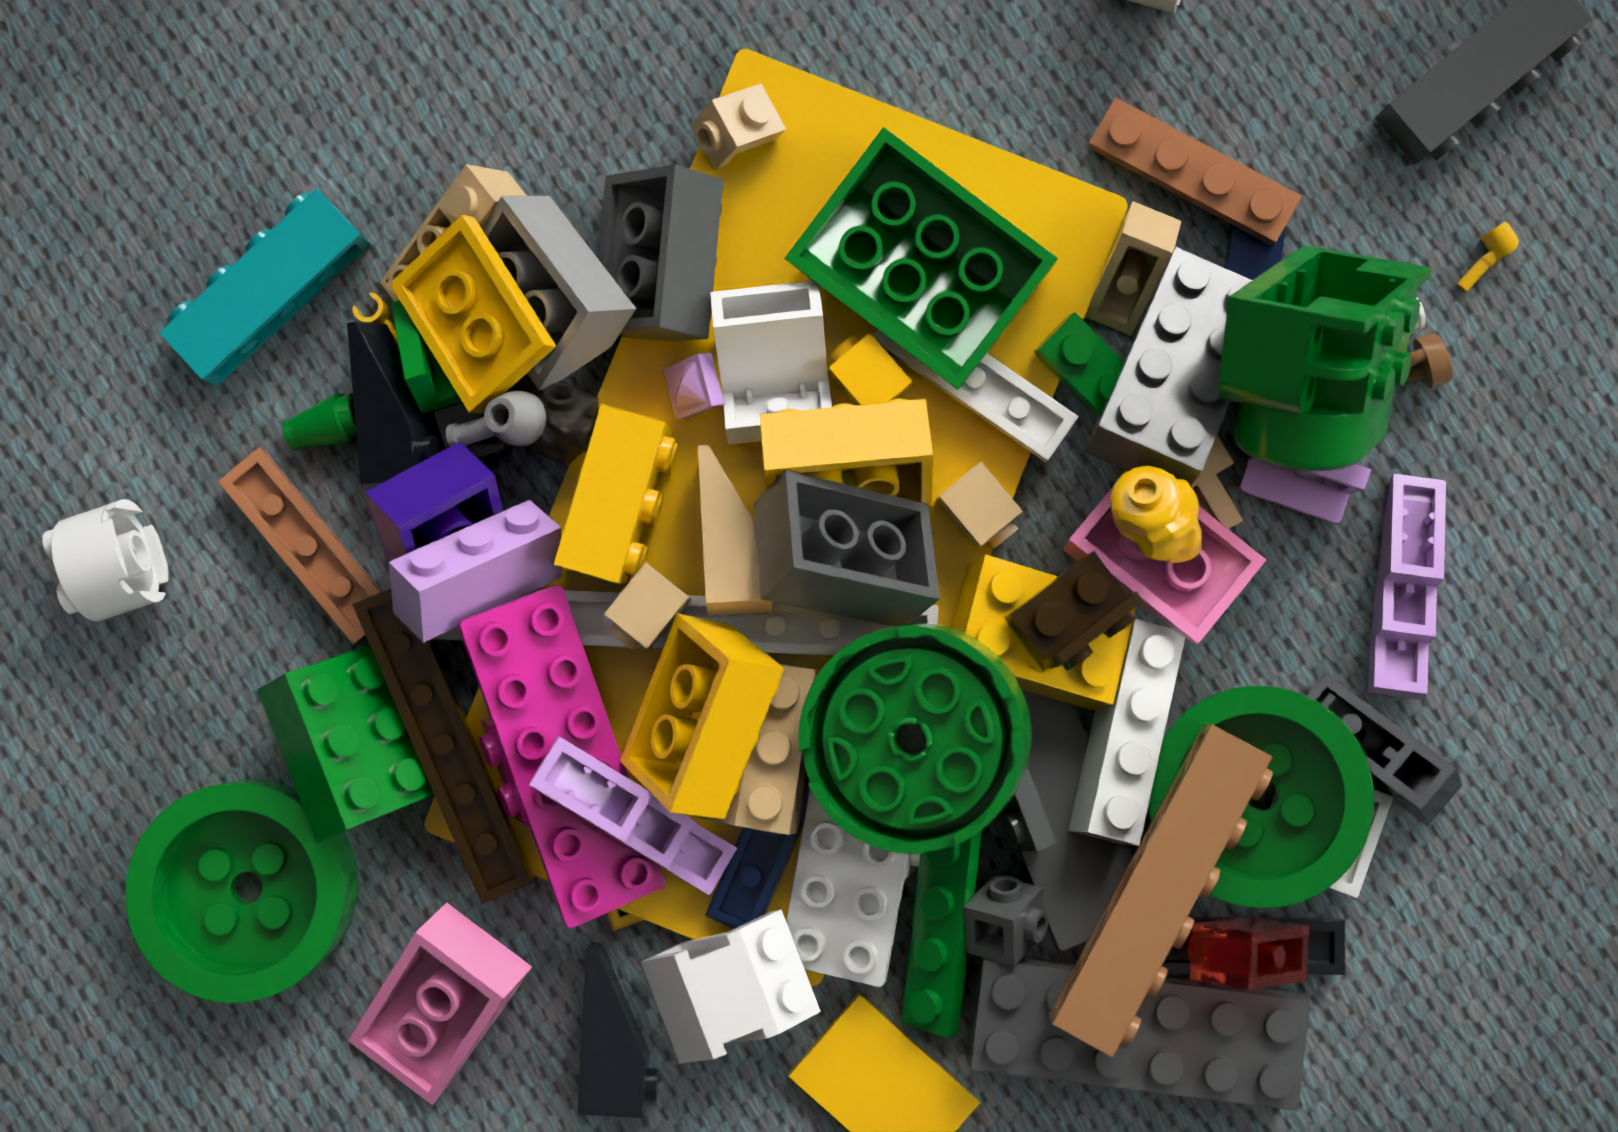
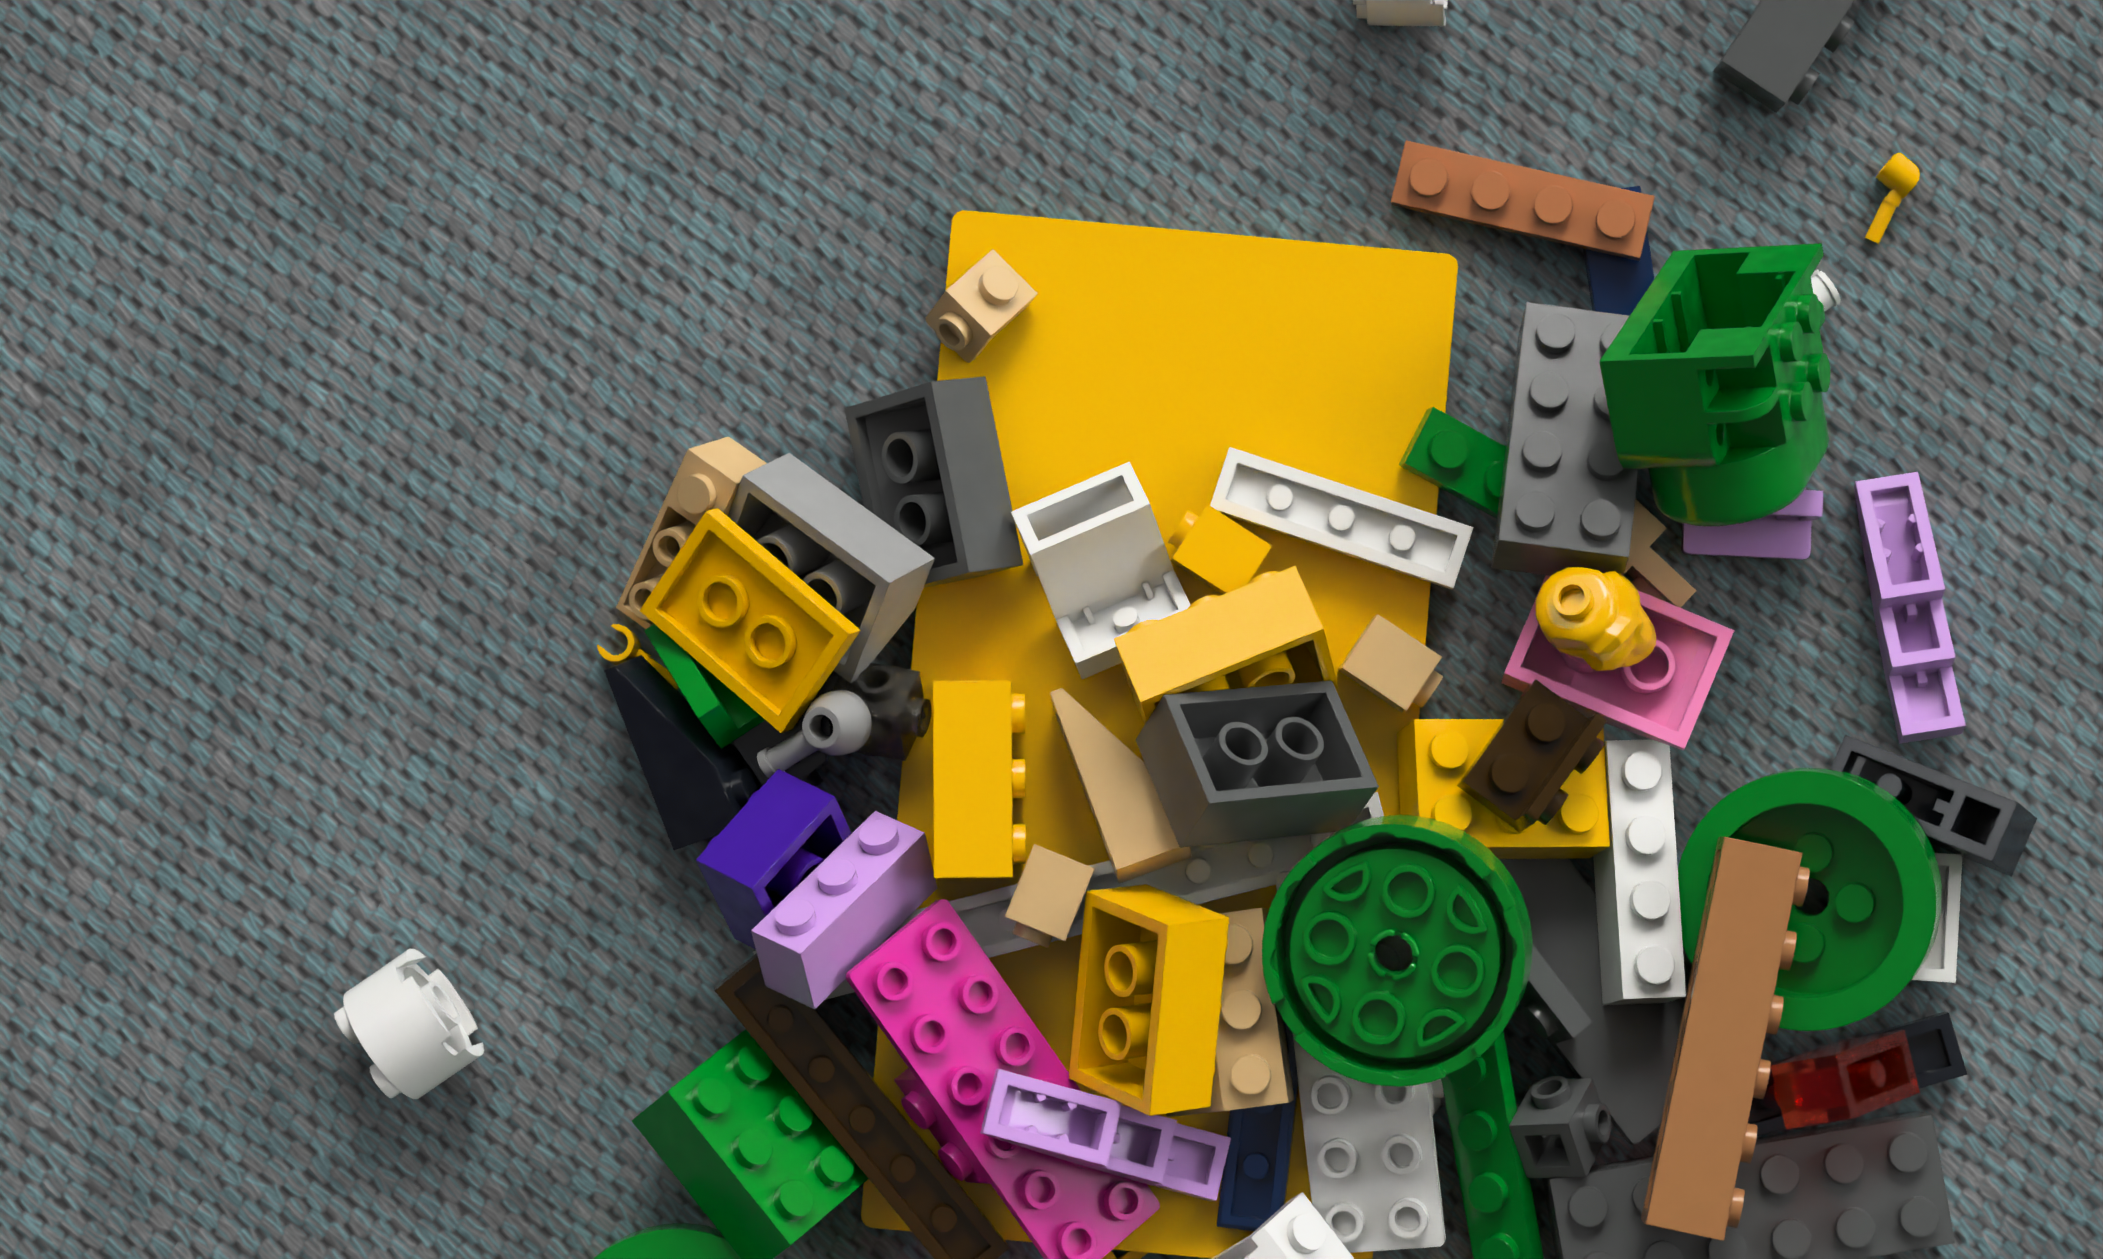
camera: 20 degrees left, 0 degrees up
(263, 287) = (489, 654): teal brick -> none
(301, 539) = (623, 936): nougat plate -> none
(323, 424) = (606, 791): green cone -> none
(693, 386) = (1021, 623): lavender tile -> none
(921, 258) = (1240, 404): green slope -> none
(1133, 268) = (1486, 333): tan slope -> none
(1432, 361) = (1860, 337): medium nougat tile -> none

